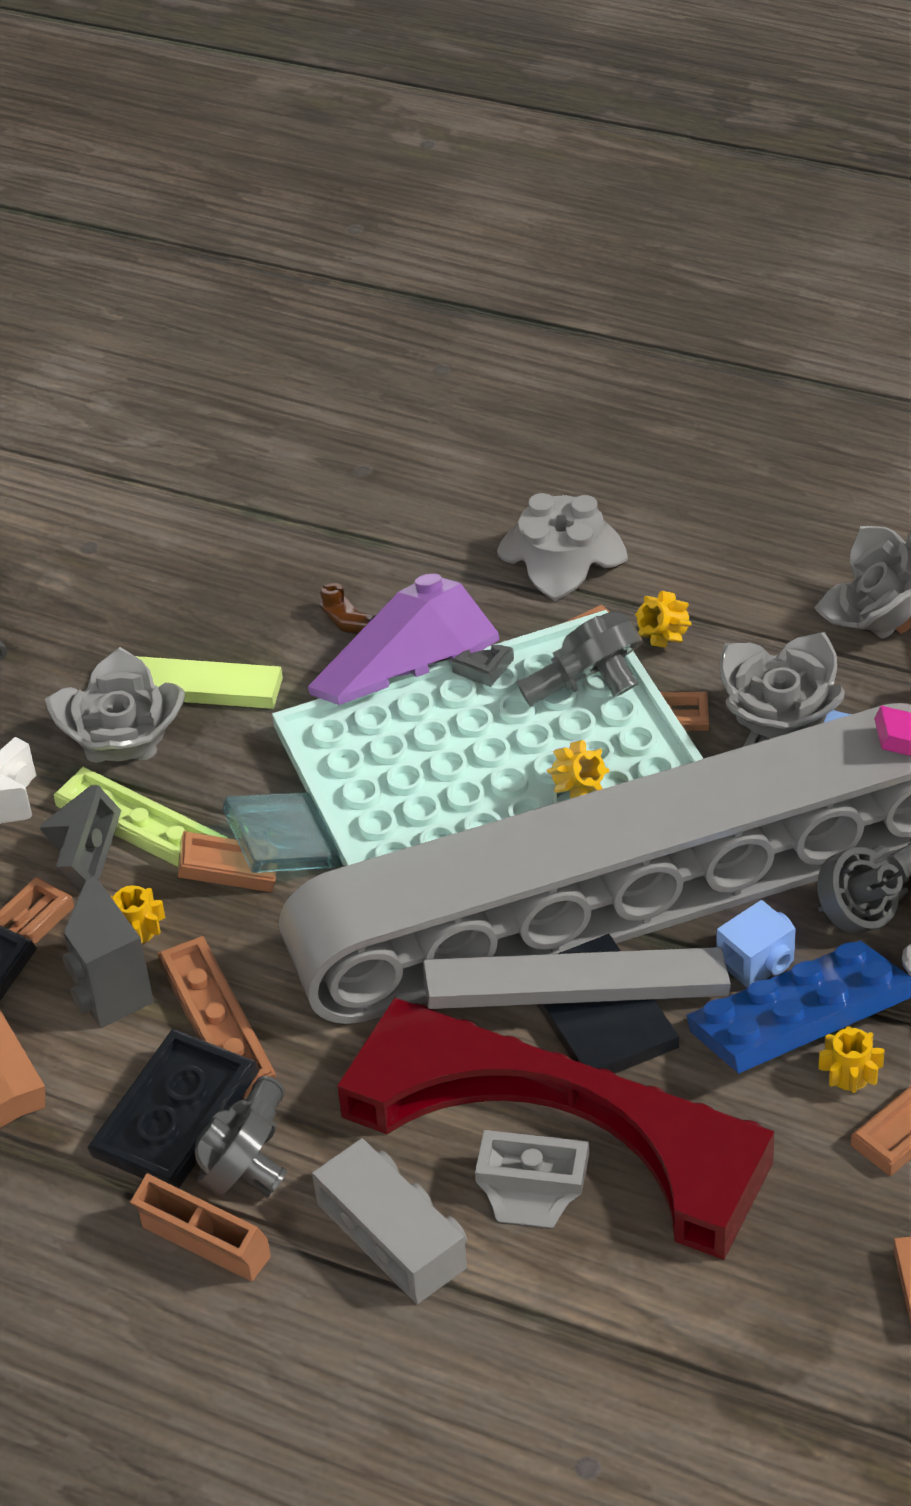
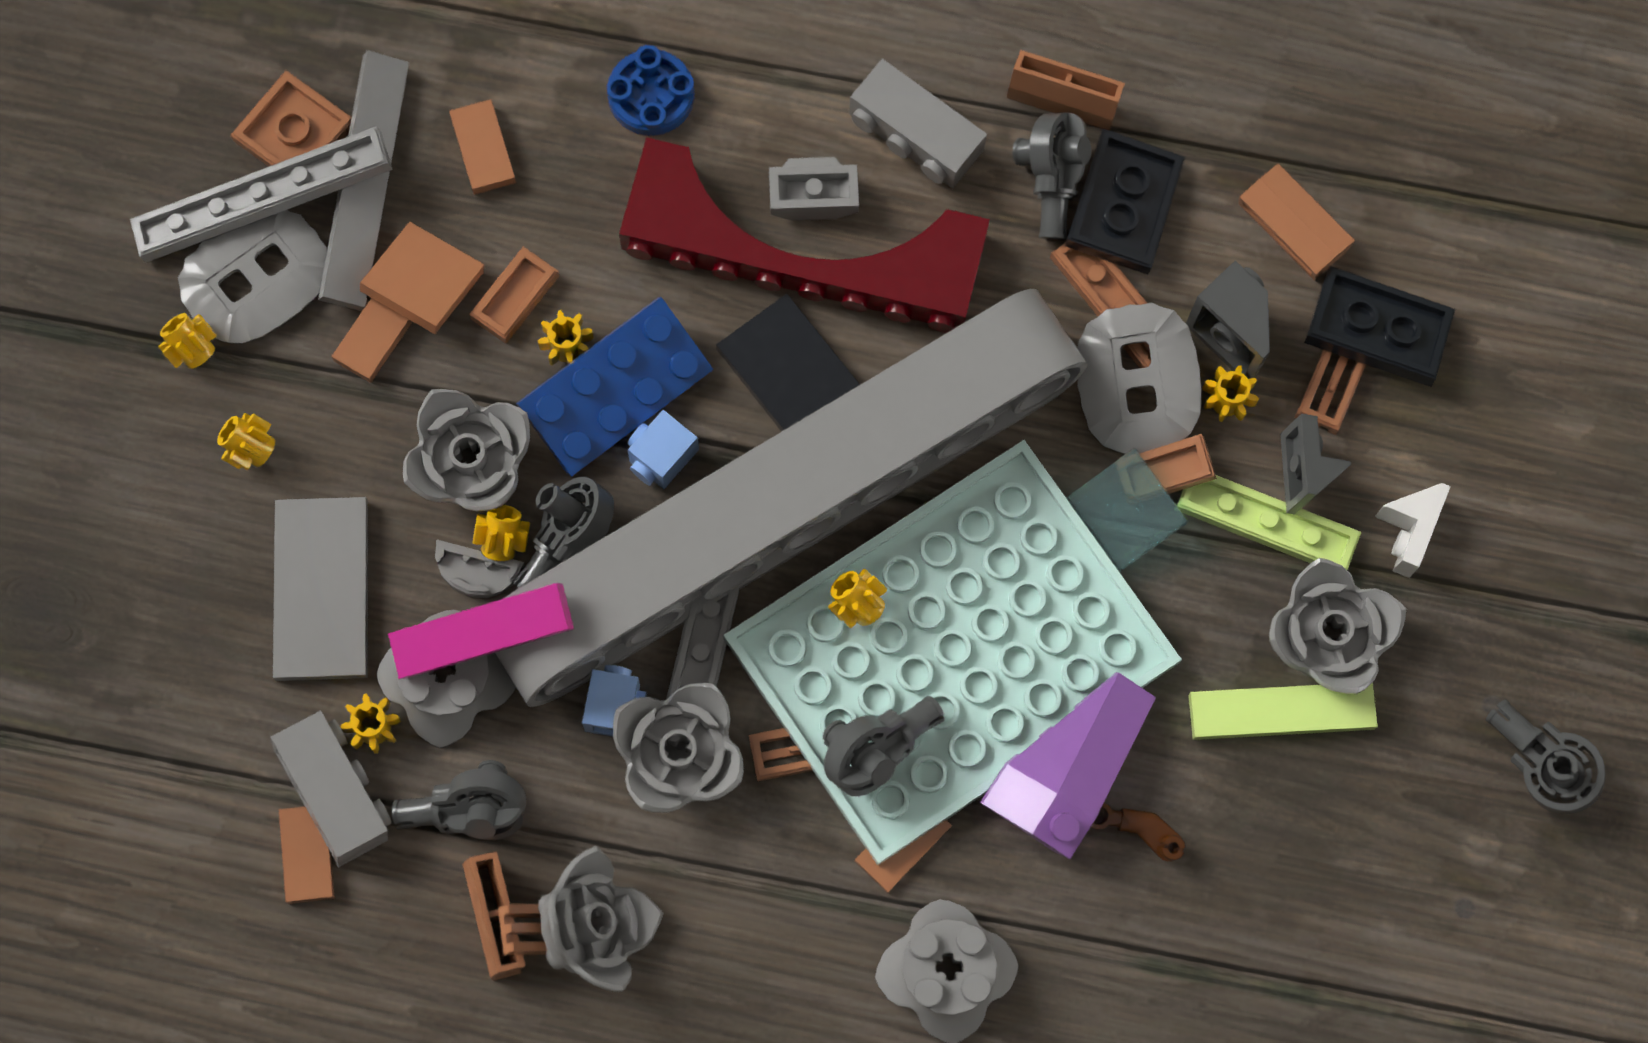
camera: 160 degrees right, 30 degrees up
(190, 926) = (1172, 374): none -> light grey piece
(483, 665) = (985, 753): dark grey tile -> none
(575, 977) = (808, 373): light grey tile -> none
(663, 619) = (816, 858): yellow gear -> none
(709, 1319) = (650, 91): none -> blue tile

